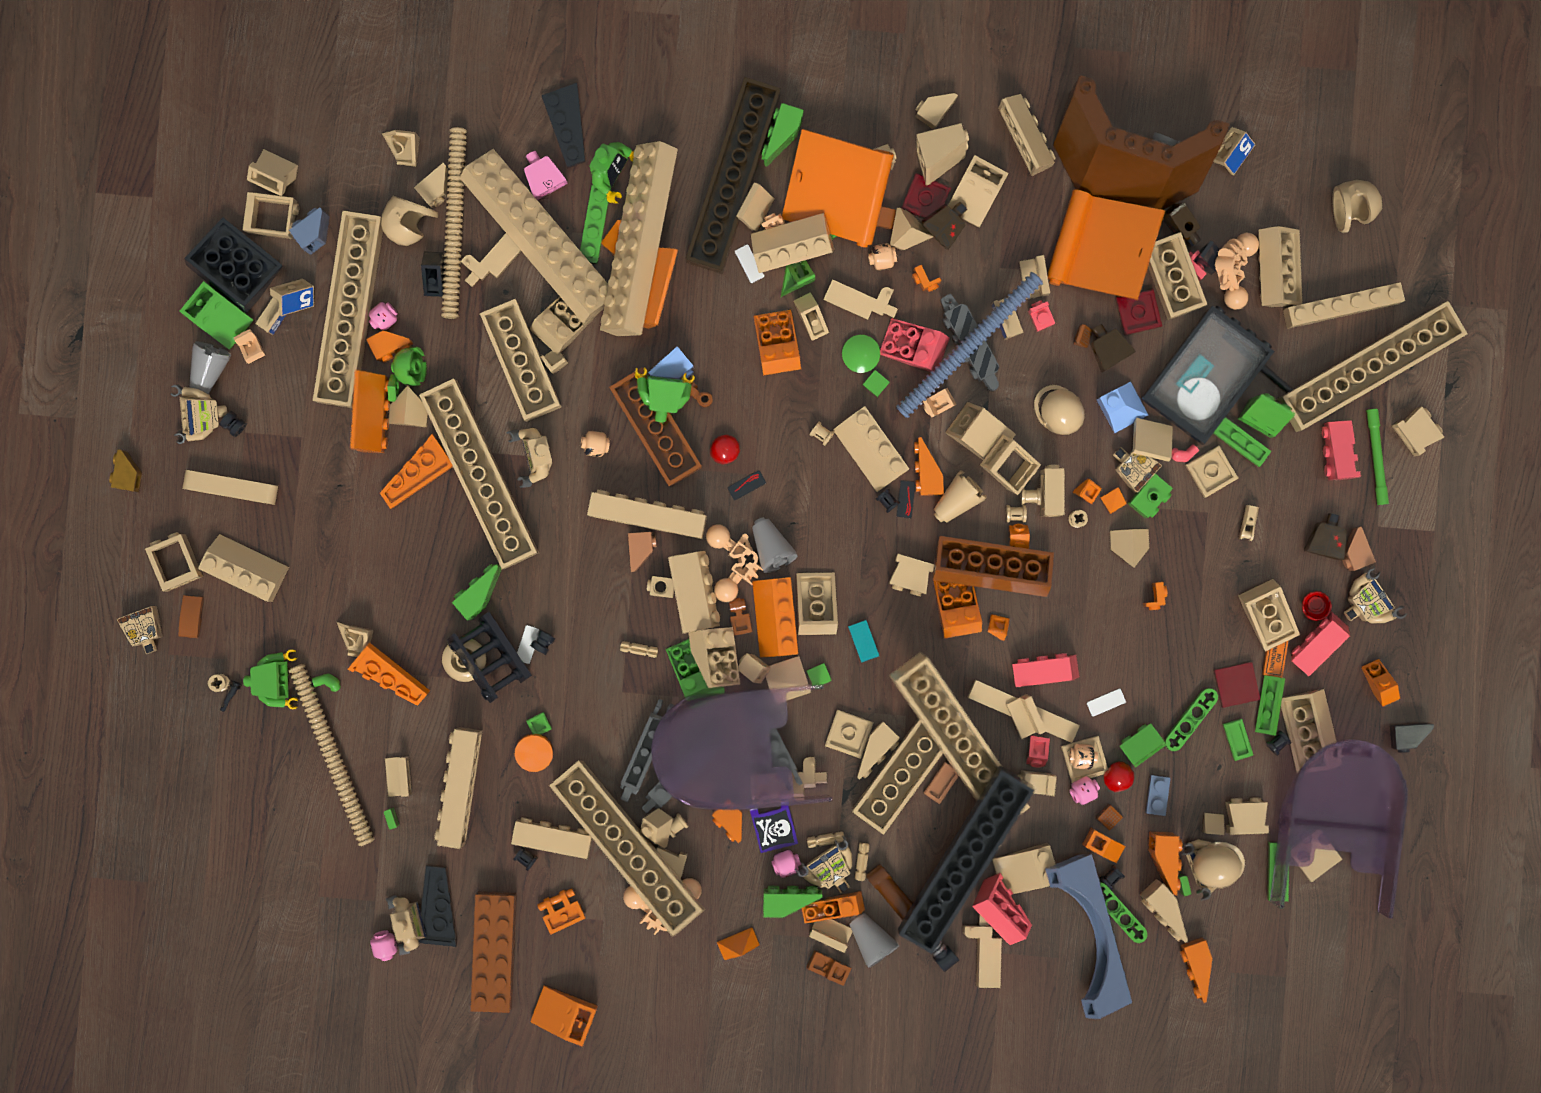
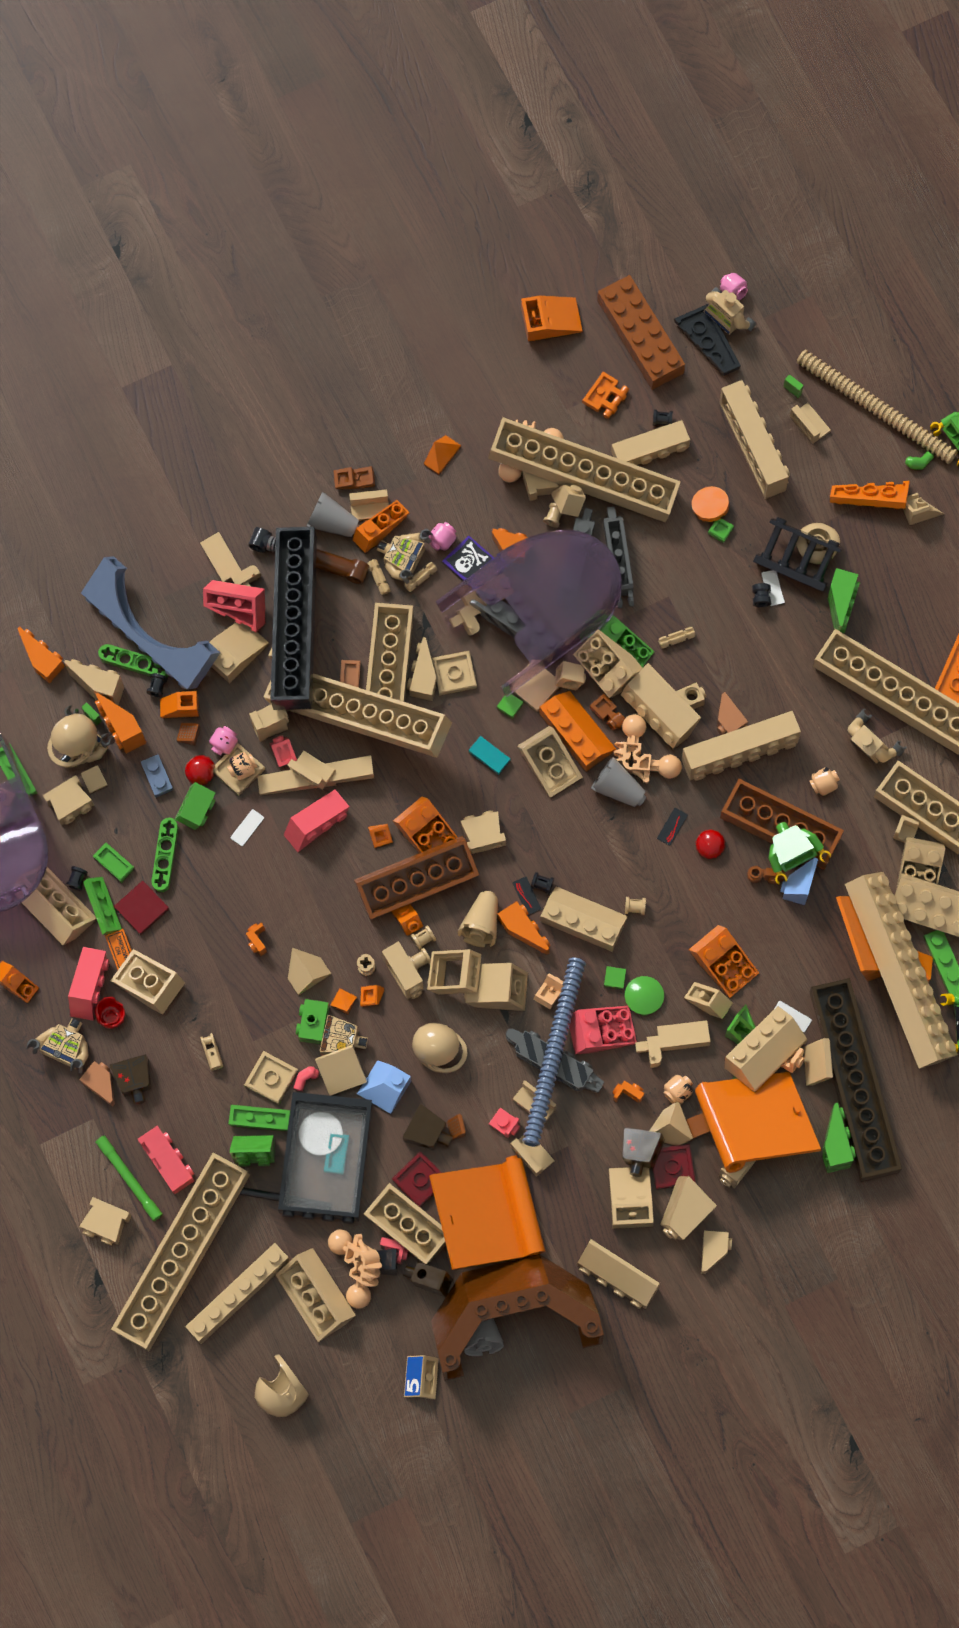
camera: 155 degrees right, 15 degrees down
(786, 901) = (426, 504): bright green slope -> none

